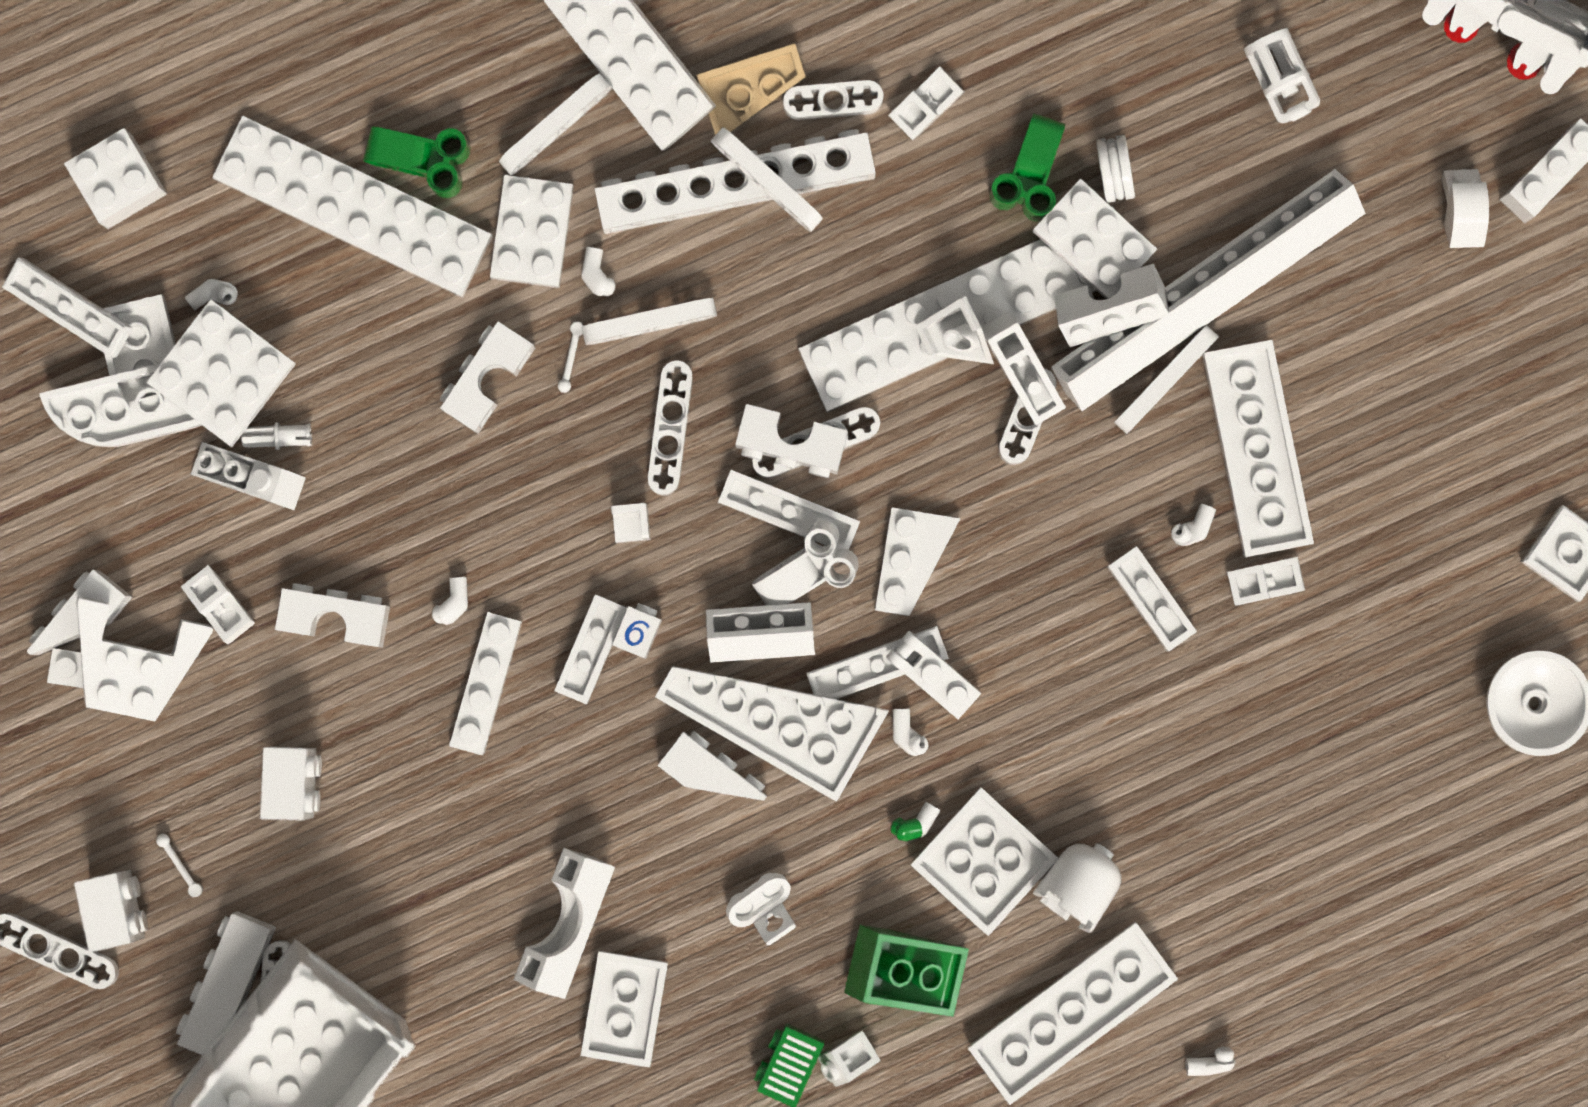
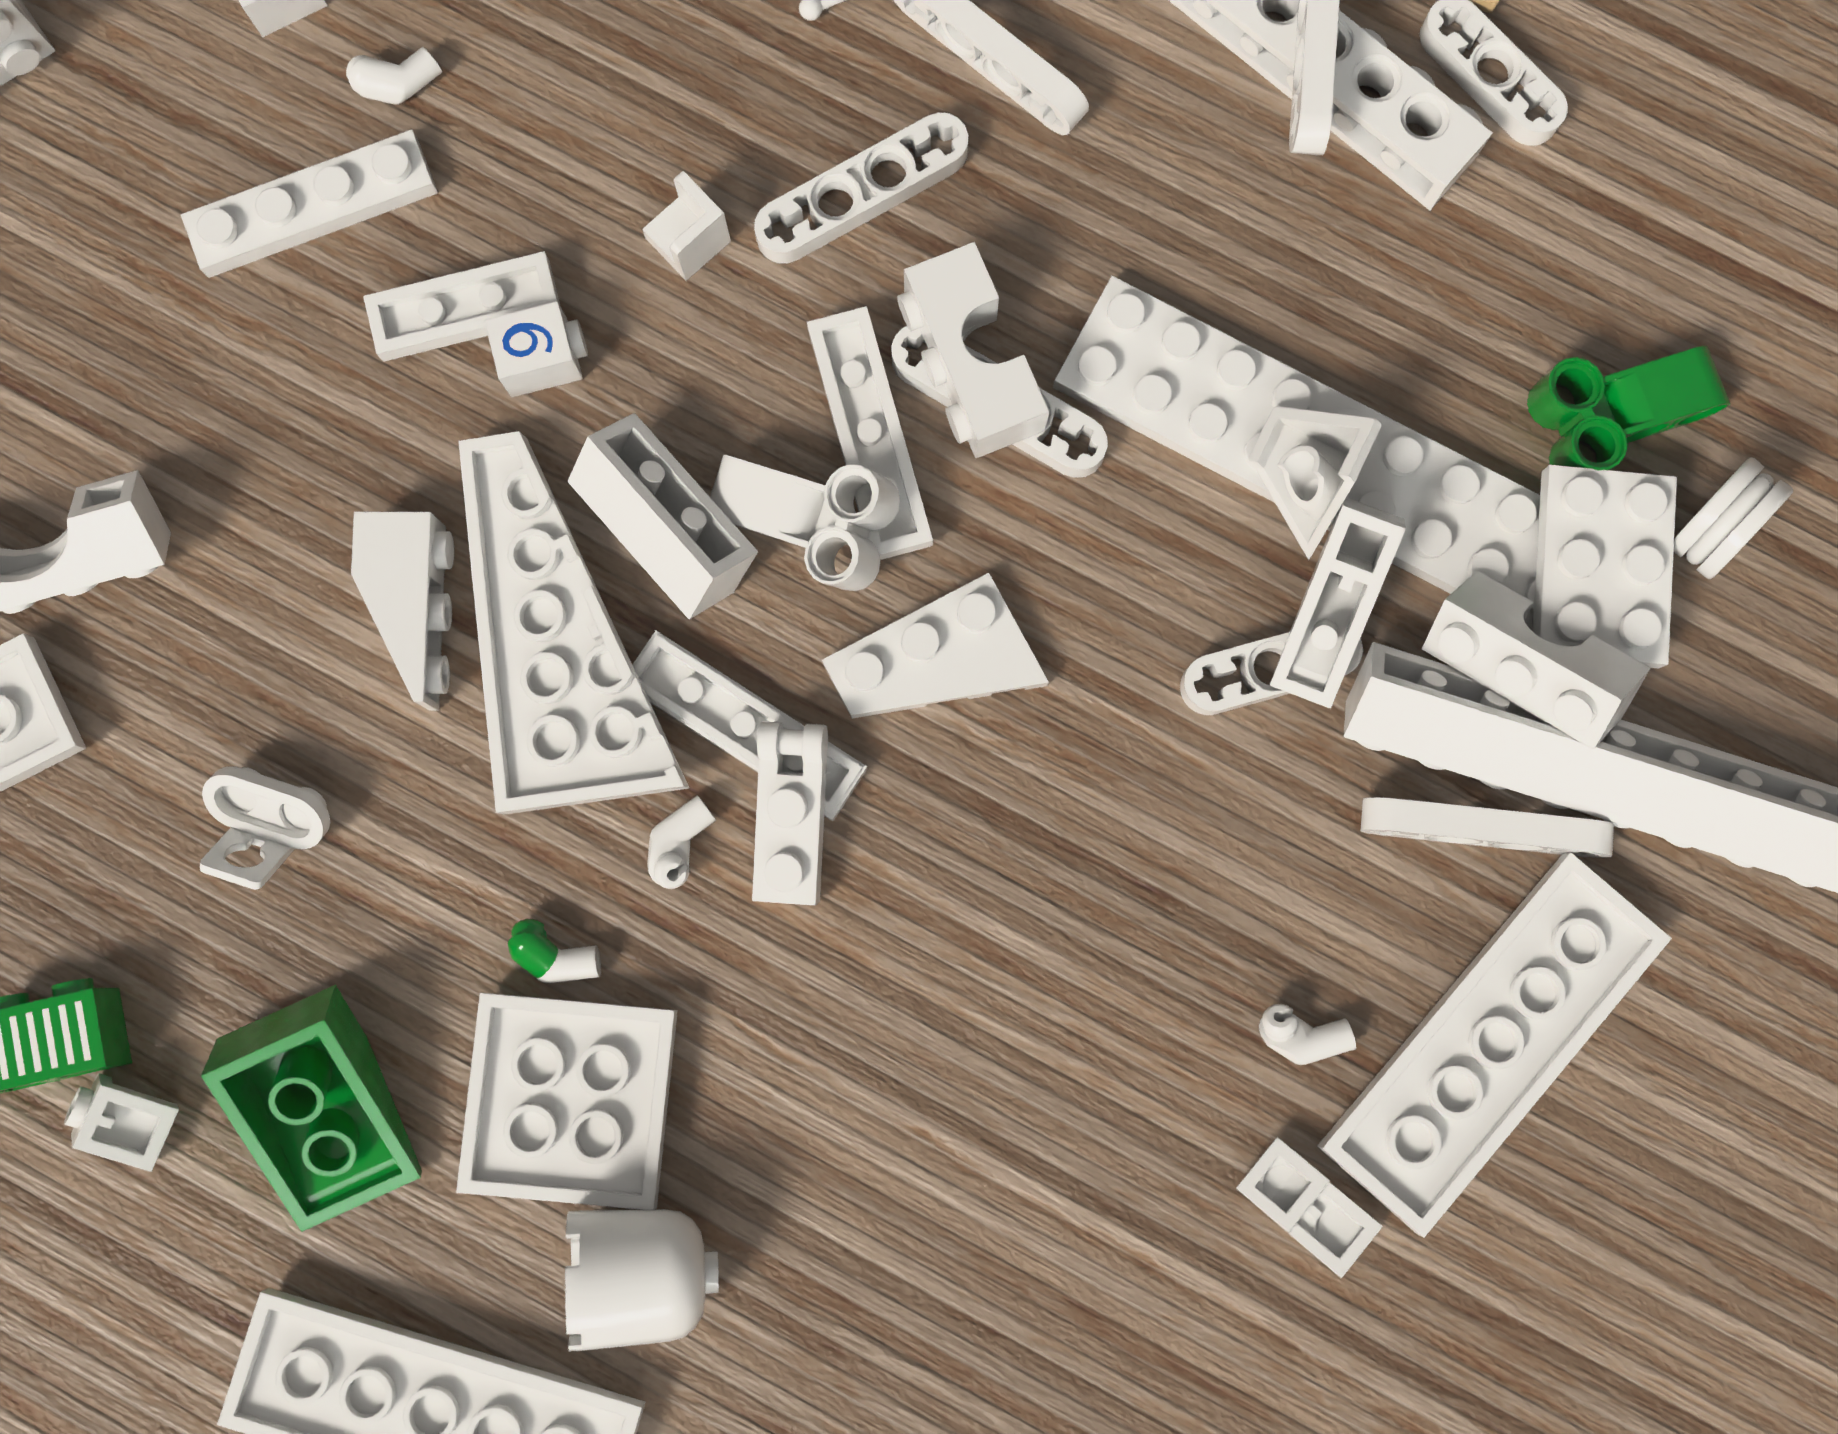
camera: 55 degrees right, 5 degrees down
(926, 103) = (1594, 201): white slope -> none
(1152, 599) = (1149, 1054): white plate -> none

